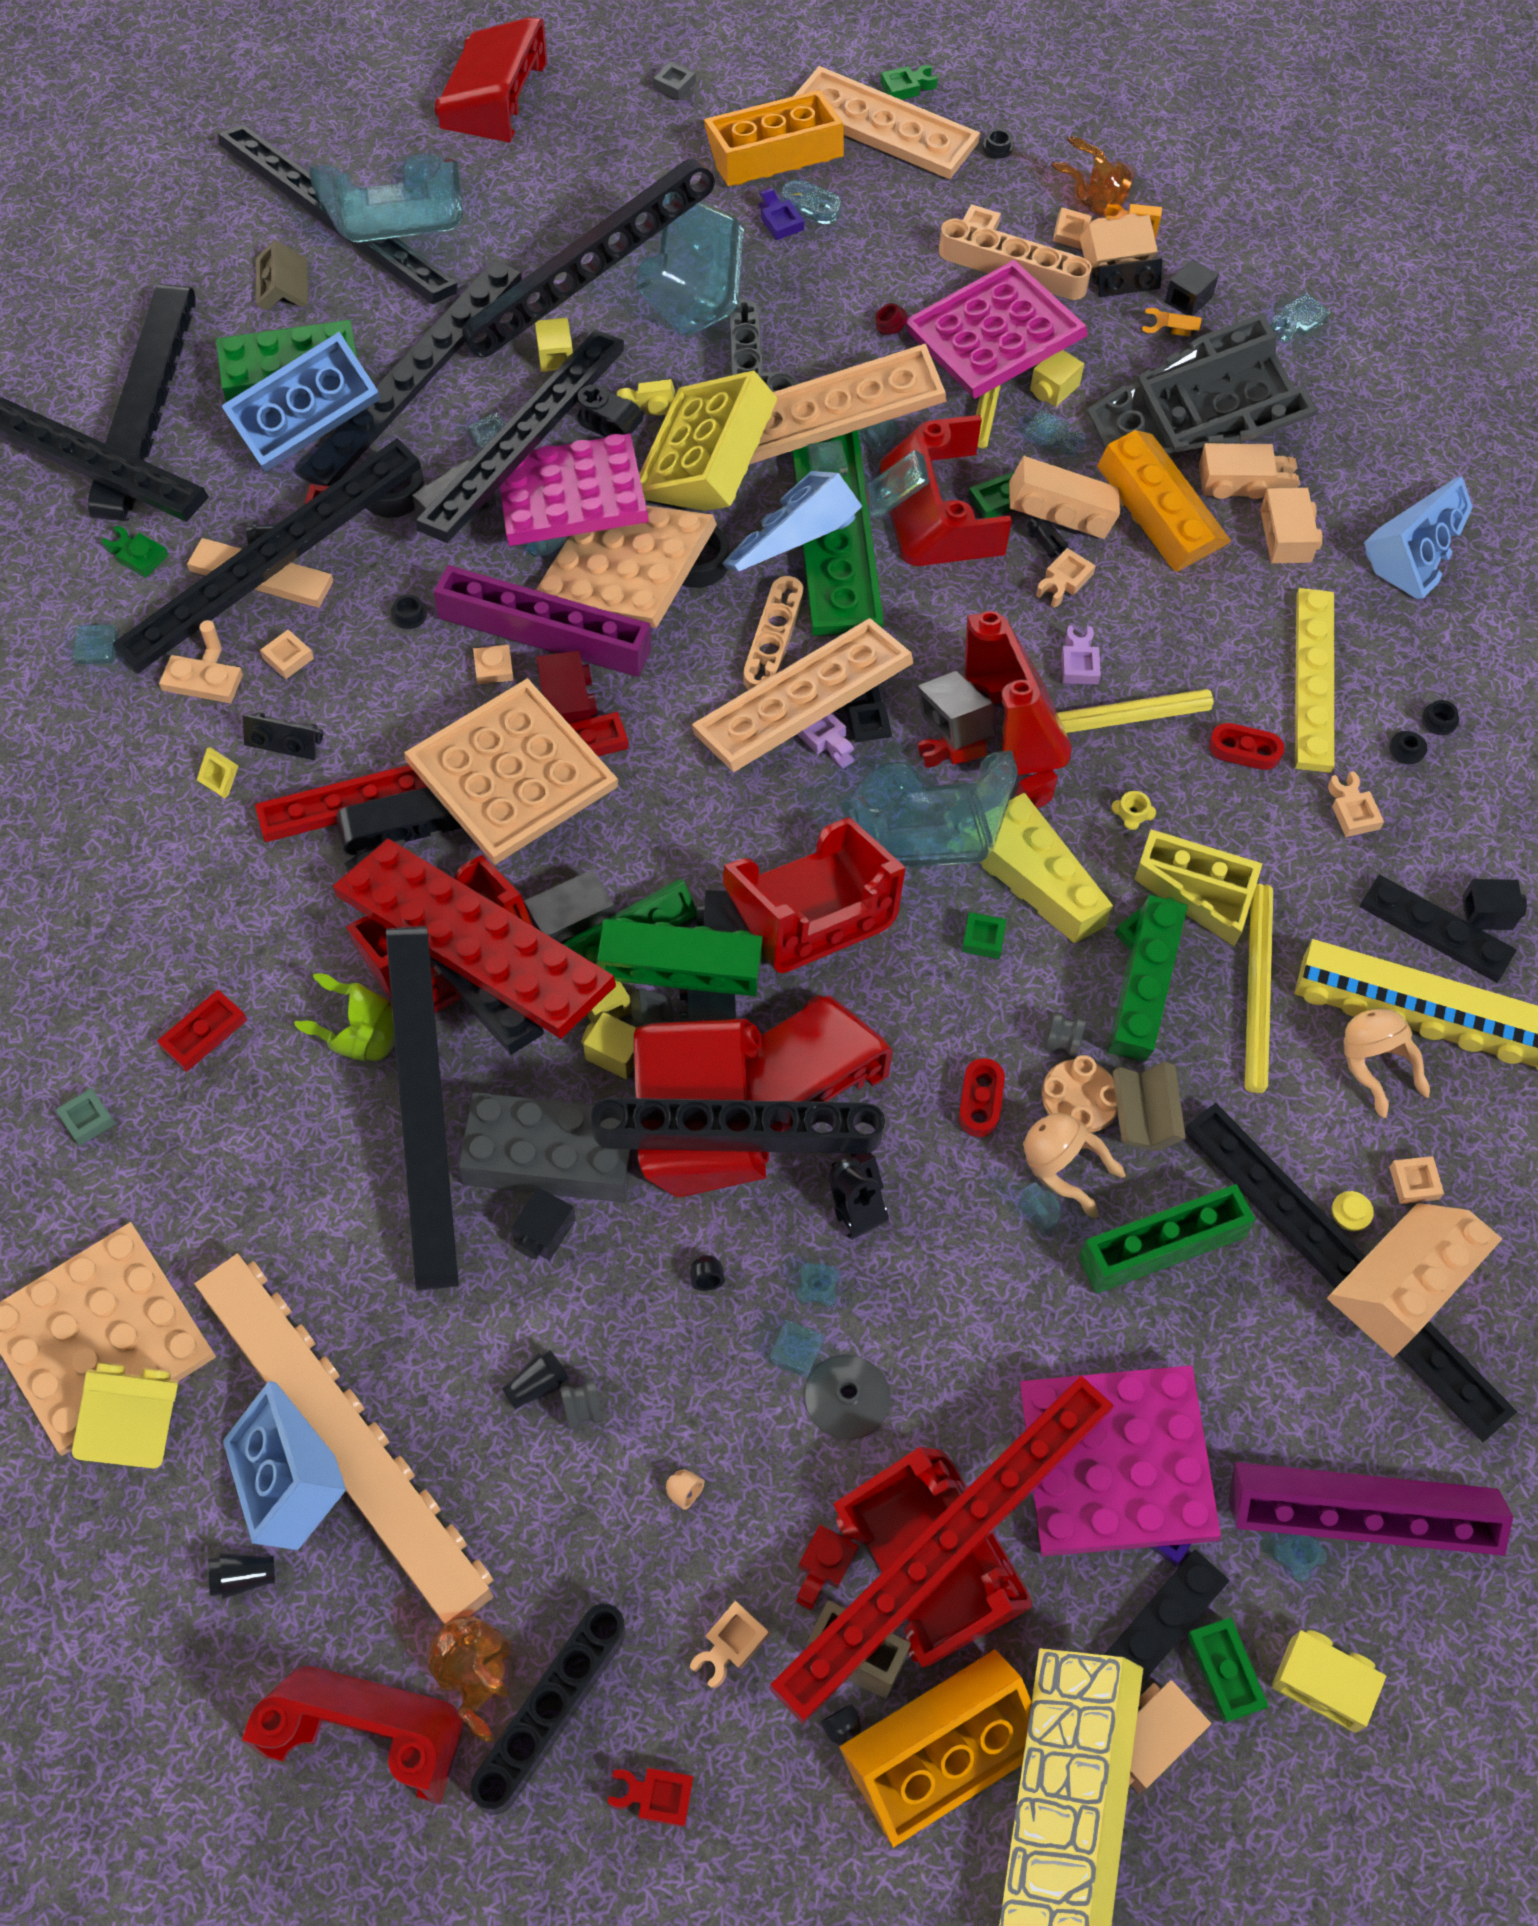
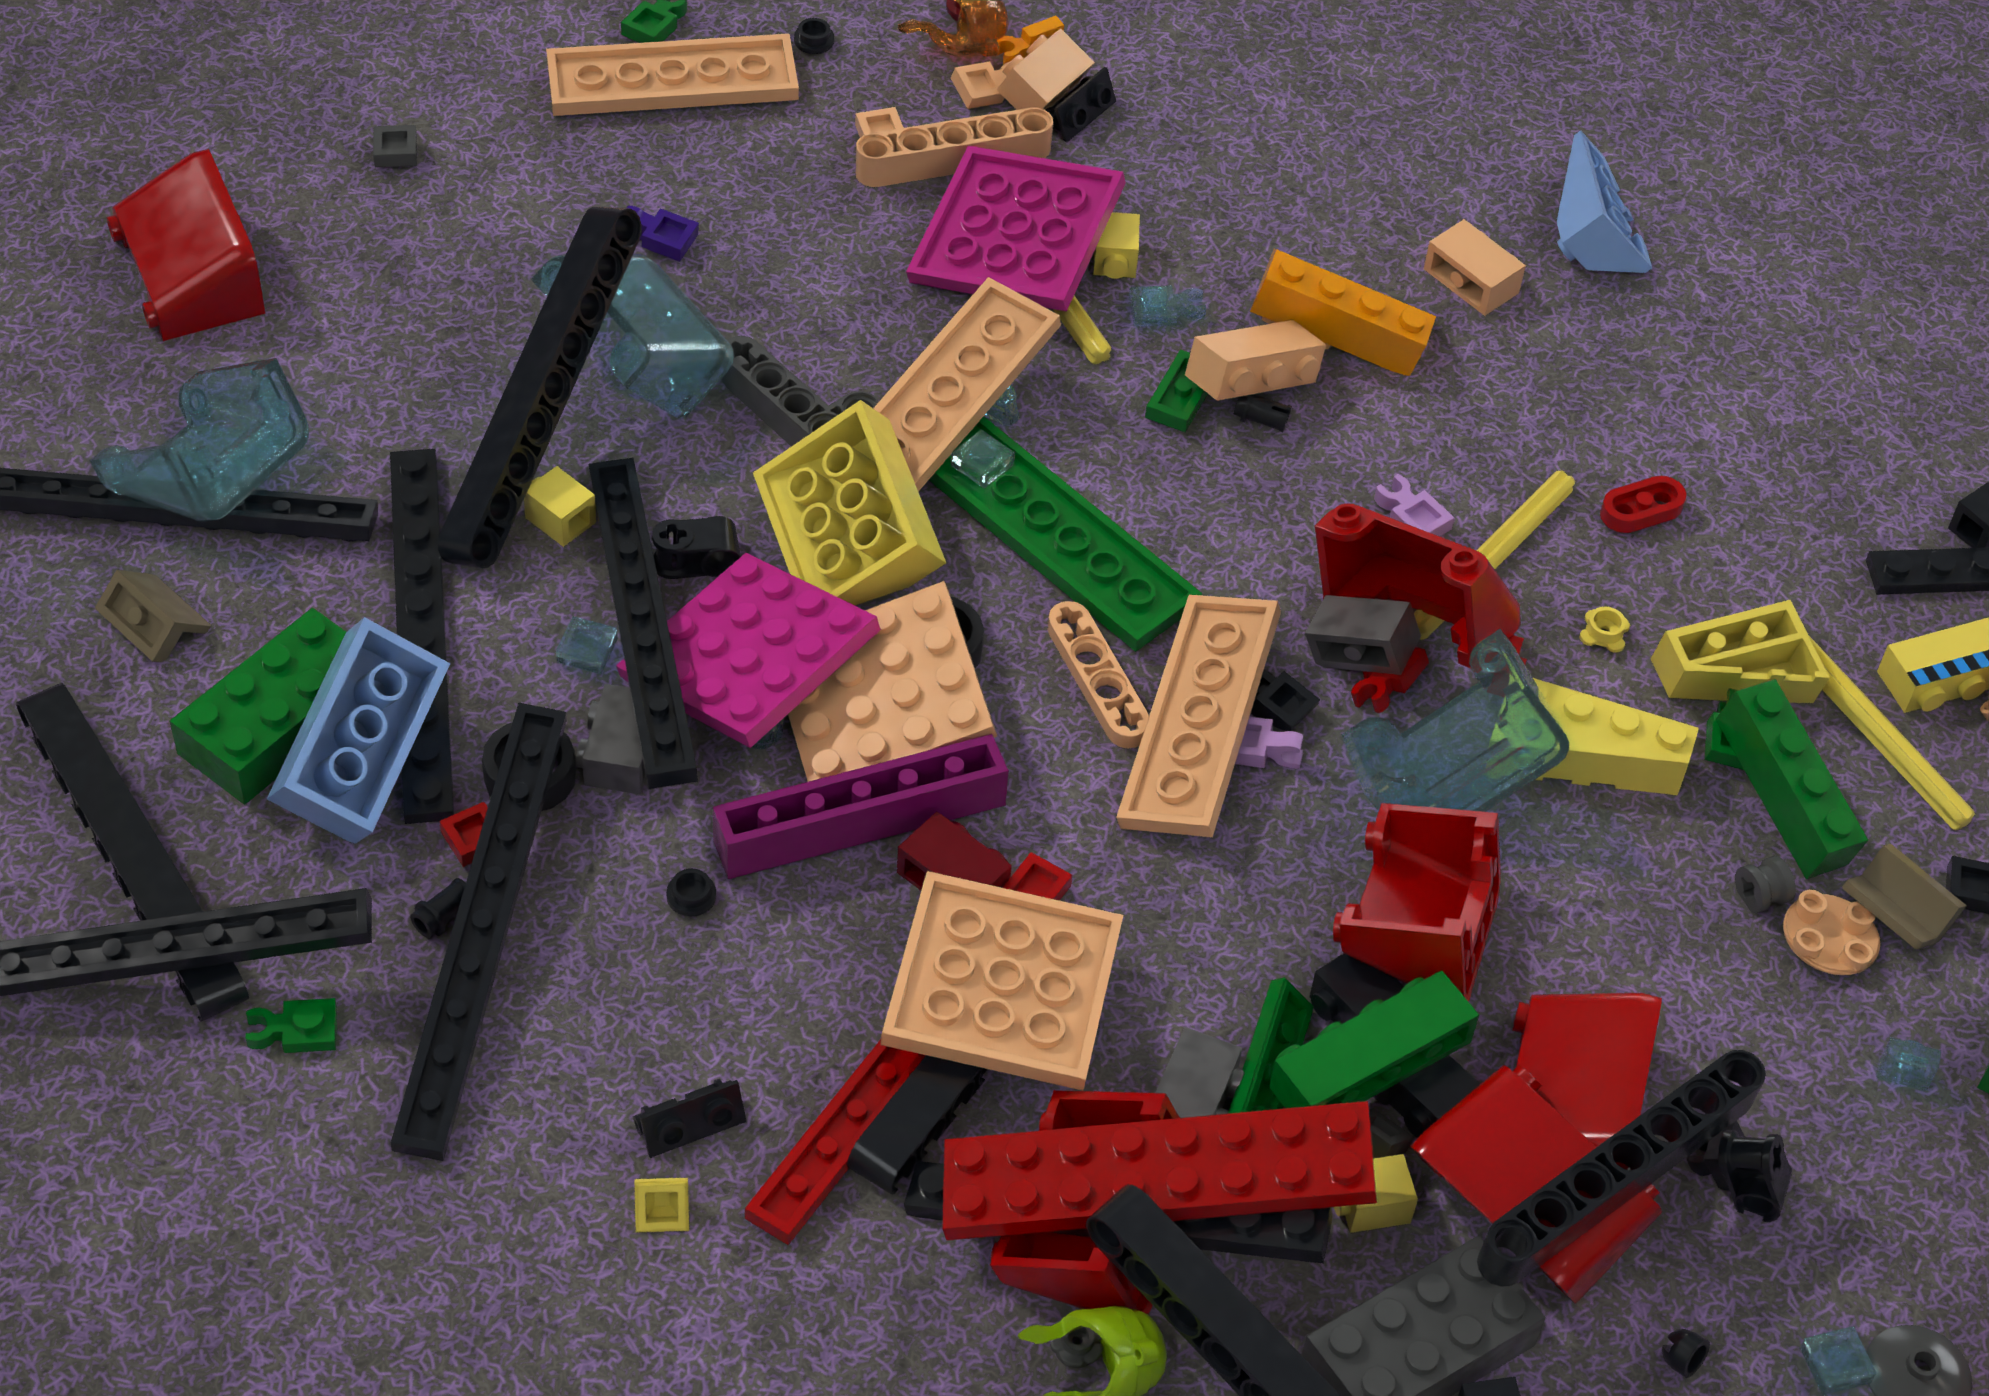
camera: 40 degrees left, 10 degrees down
(95, 644) = (366, 1159): clear light blue plate -> none
(202, 677) = (524, 1114): light nougat plate -> none
(287, 654) = (604, 1024): light nougat plate -> none
(291, 582) = (529, 943): light nougat tile -> none
(493, 664) = (840, 890): light nougat plate -> none
(651, 397) = (732, 498): light yellow plate -> none
(775, 137) = (581, 149): light orange slope -> none
(809, 511) = (1023, 529): light blue wedge -> none
(812, 201) = (684, 196): clear light blue plate -> none
(818, 1273) = (1794, 1272): clear light blue plate -> none
(890, 319) = (890, 278): dark red plate -> none
(896, 484) = (1087, 441): clear light blue plate -> none
(935, 529) = (1116, 450): red windscreen -> none
(981, 1099) = (1755, 999): red plate -> none
(984, 935) = (1599, 841): green plate -> none
(1054, 1144) = (1874, 995): light nougat hair -> none
(1067, 574) = (1322, 439): light nougat plate -> none
(1180, 323) = (1178, 125): light orange plate -> none
(1191, 288) = (1155, 83): black brick -> none
(1213, 392) = (1282, 184): dark grey wedge -> none
(1244, 470) = (1381, 238): light nougat hinge -> none
(1300, 315) = (1281, 57): clear light blue plate -> none
(1314, 681) = (1636, 404): light yellow plate -> none
(1354, 810) = (1788, 504): light nougat plate -> none
(1404, 753) = (1775, 417): black plate -> none
(1444, 710) = (1775, 371): black plate -> none

